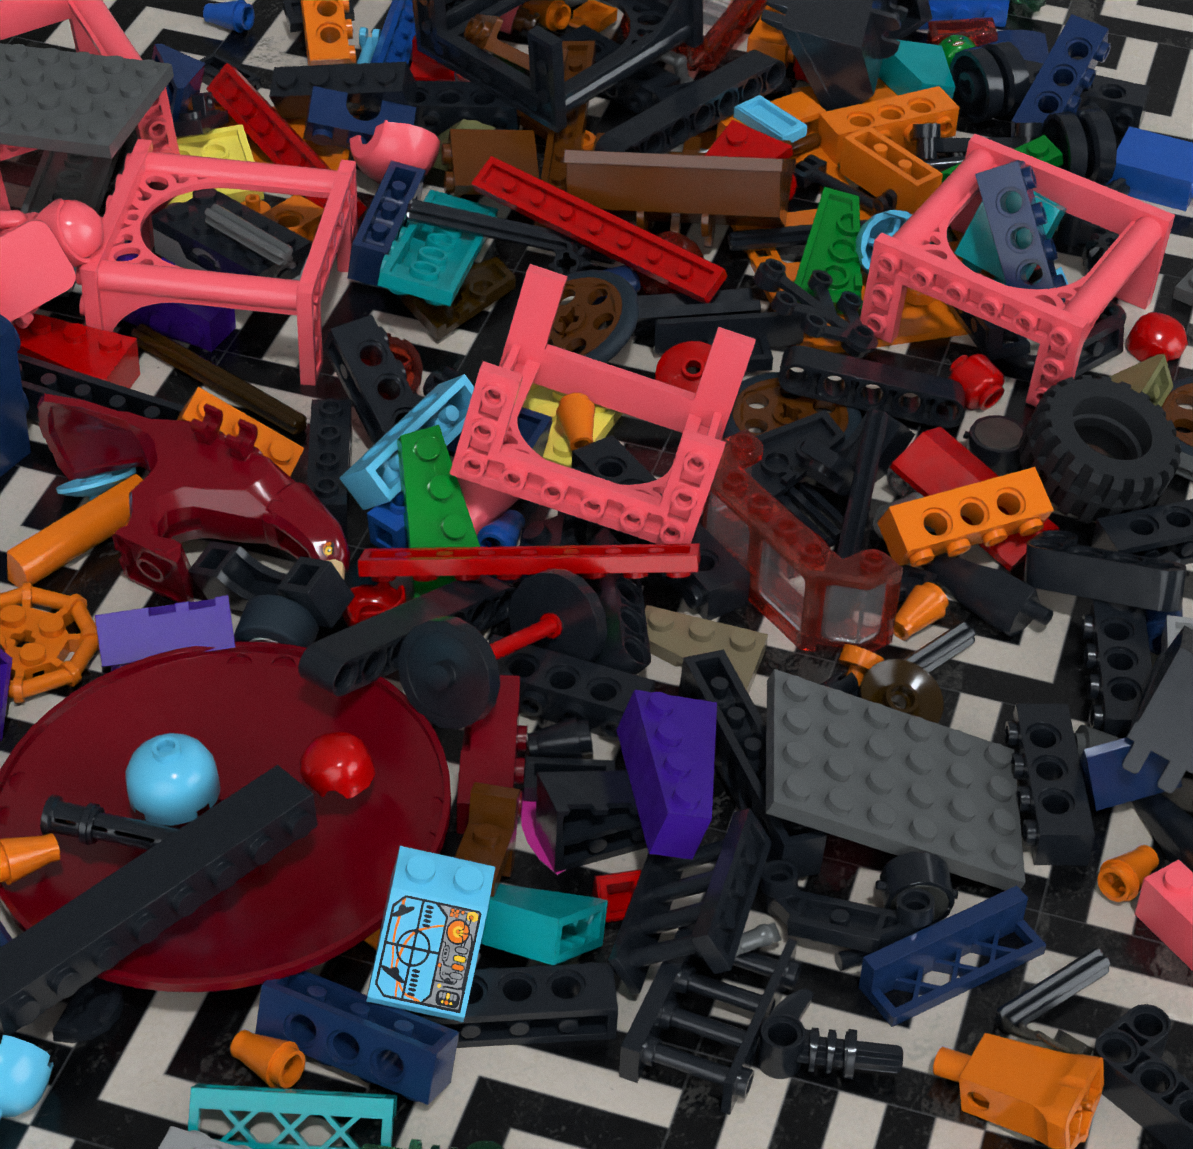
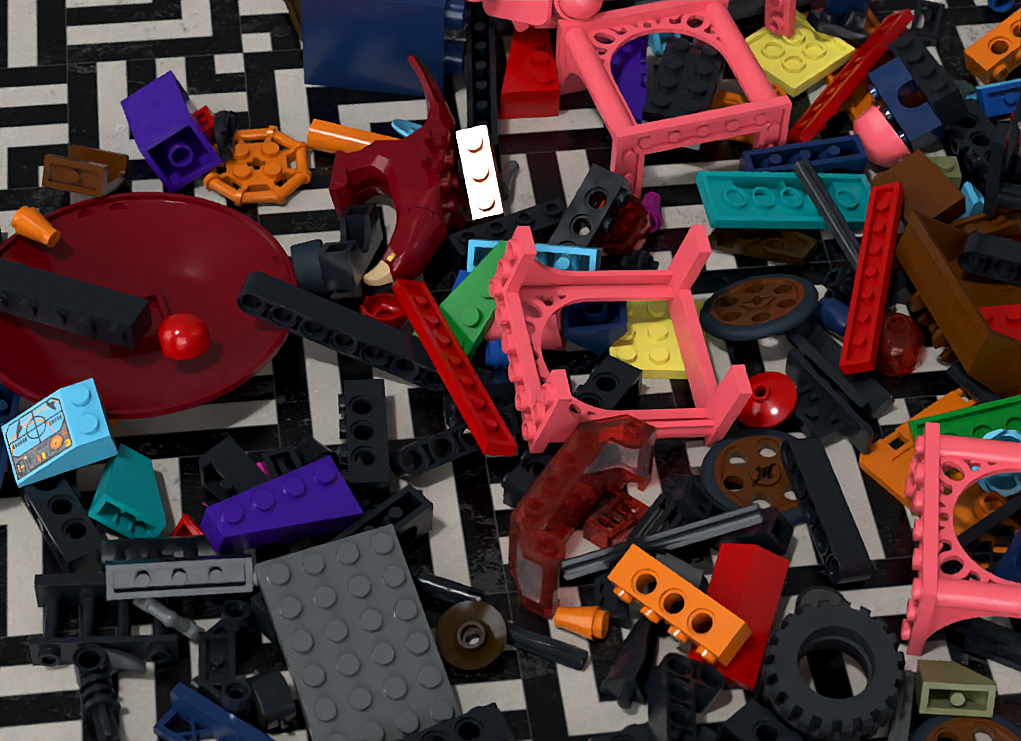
camera: 65 degrees right, 5 degrees up
(93, 824) = (75, 245): black pin -> none
(155, 630) = (285, 216): dark purple wedge -> none
(171, 779) = (132, 265): medium azure cylinder -> none
(220, 380) = (575, 150): dark brown axle -> none
(249, 235) = (669, 85): dark grey axle -> none
(454, 670) = (409, 405): black piece -> none
(491, 829) = (168, 442): reddish brown bracket -> none
(492, 749) = (272, 419): dark red wedge -> none
(577, 419) = (644, 345): orange cone -> none
(682, 635) = (467, 510): dark tan wing -> none
(782, 459) = (720, 481): black wing -> none
(818, 311) = (883, 443): black plant -> none
(858, 660) = (502, 598): orange tile -> none
(979, 379) = (890, 577): red head -> none

